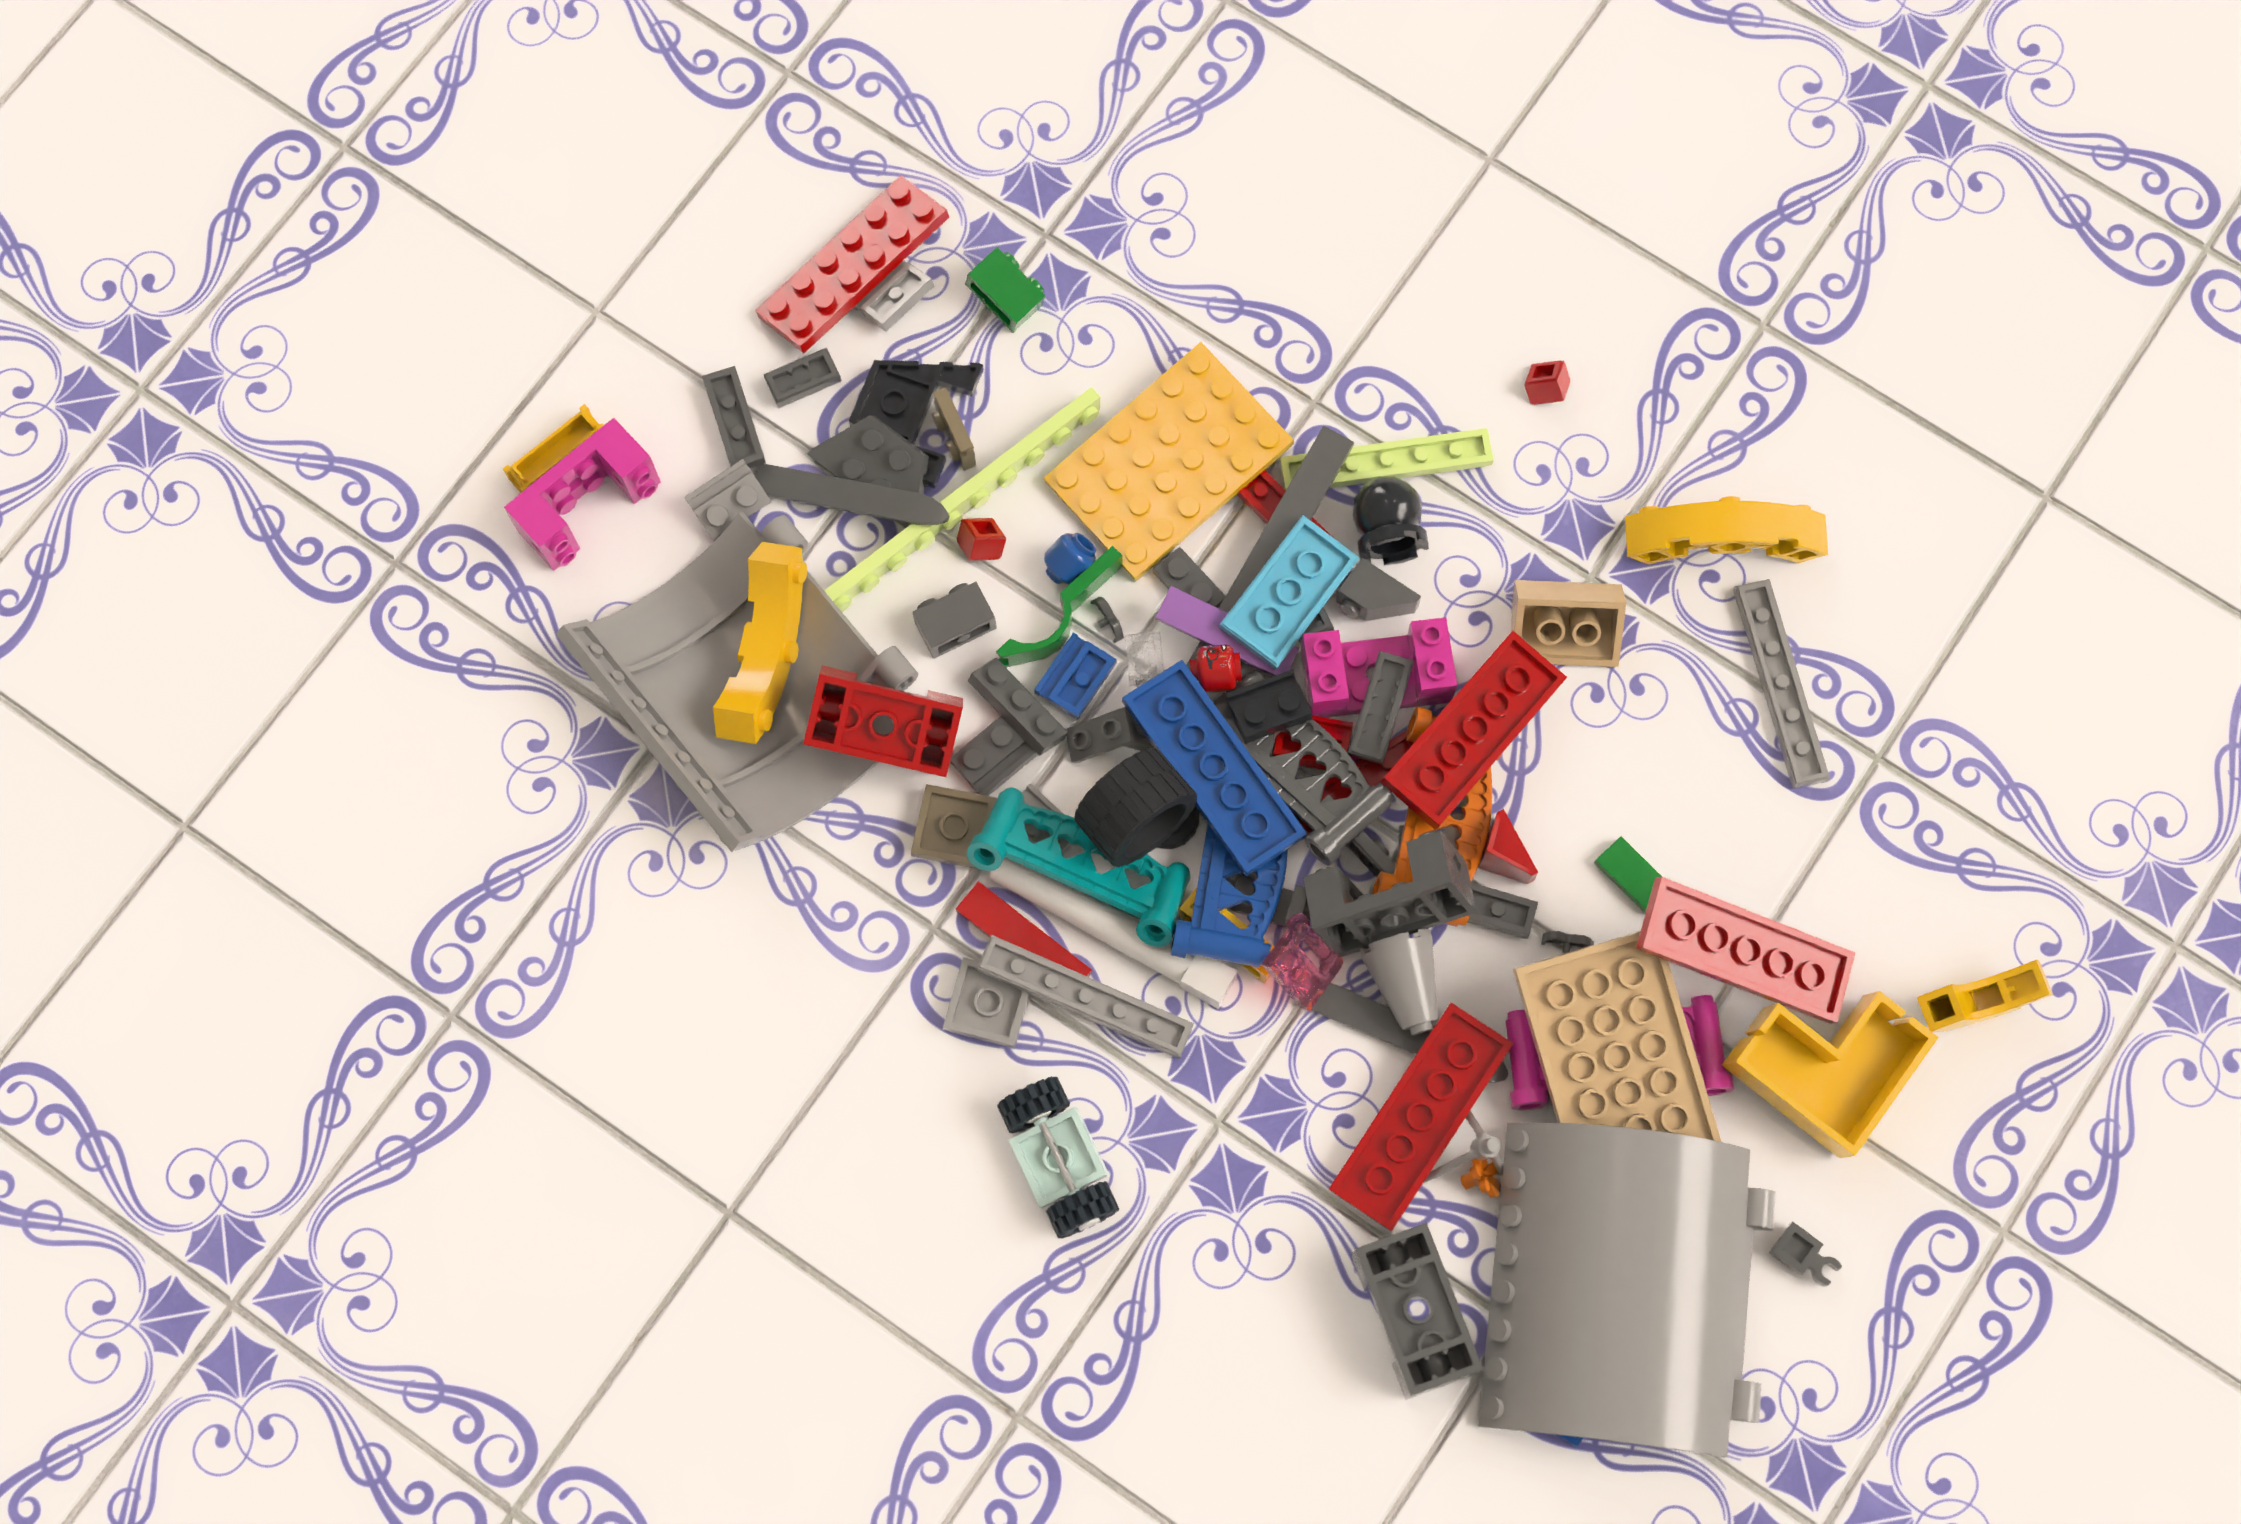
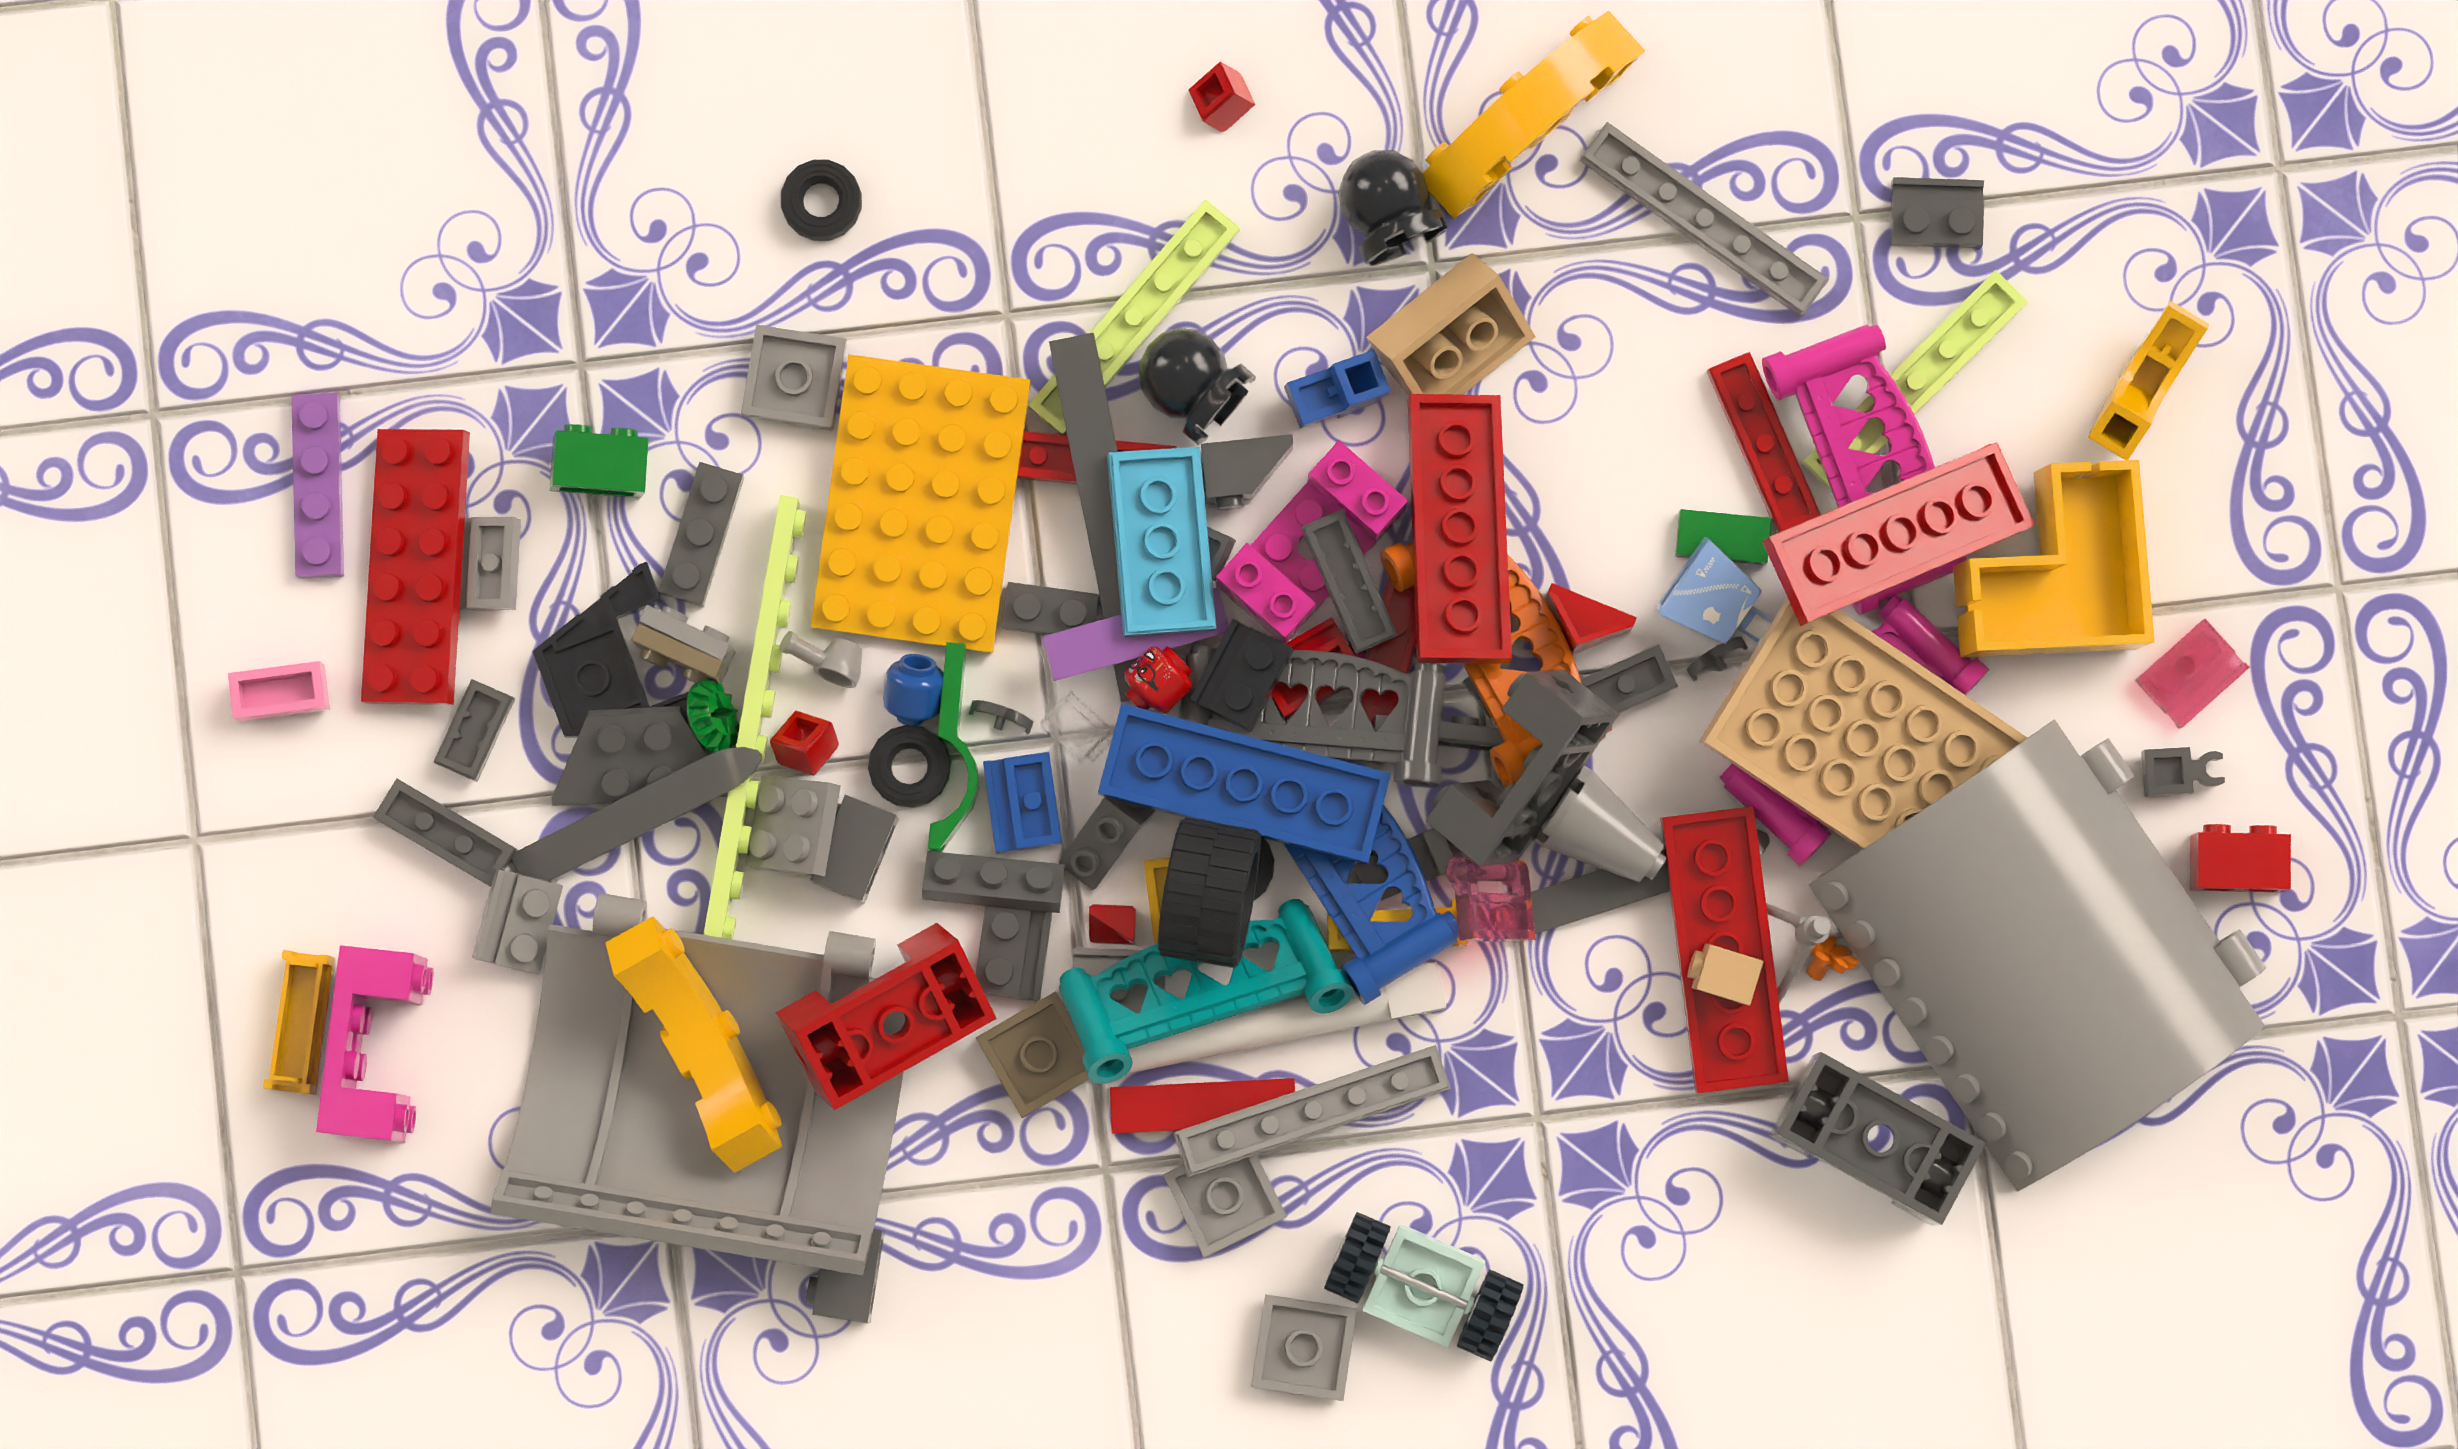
camera: 45 degrees left, 10 degrees up
(715, 266) = (278, 691): none -> bright pink piece
(722, 868) = (847, 1294): none -> dark grey brick
(840, 179) = (317, 485): none -> medium lavender plate
(930, 575) = (793, 826): none -> light grey plate
(931, 480) = (712, 732): none -> green gear
(954, 1133) = (1304, 1347): none -> light grey plate
(968, 412) = (674, 626): none -> light grey plate
(1022, 582) = (881, 766): none -> black tyre
(1028, 378) = (701, 534): none -> dark grey plate
(1038, 510) = (836, 664): none -> light grey bar
(1065, 788) = (1112, 924): none -> red slope
(1158, 334) = (794, 377): none -> light grey plate
(1261, 234) = (821, 172): none -> black tyre
(1407, 1126) = (1725, 973): none -> tan brick
(1474, 599) = (1338, 390): none -> blue brick
(1593, 515) = (1387, 202): none -> black tile
(1597, 900) = (1714, 597): none -> light blue torso
(1709, 831) = (1763, 442): none -> red tile
(1771, 825) = (1817, 378): none -> dark pink piece
(1798, 1342) = (2240, 860): none -> red brick
(1833, 881) = (1939, 358): none -> yellowish green plate
(1862, 1203) = (2192, 673): none -> clear pink plate
(1931, 795) = (1937, 212): none -> dark grey plate

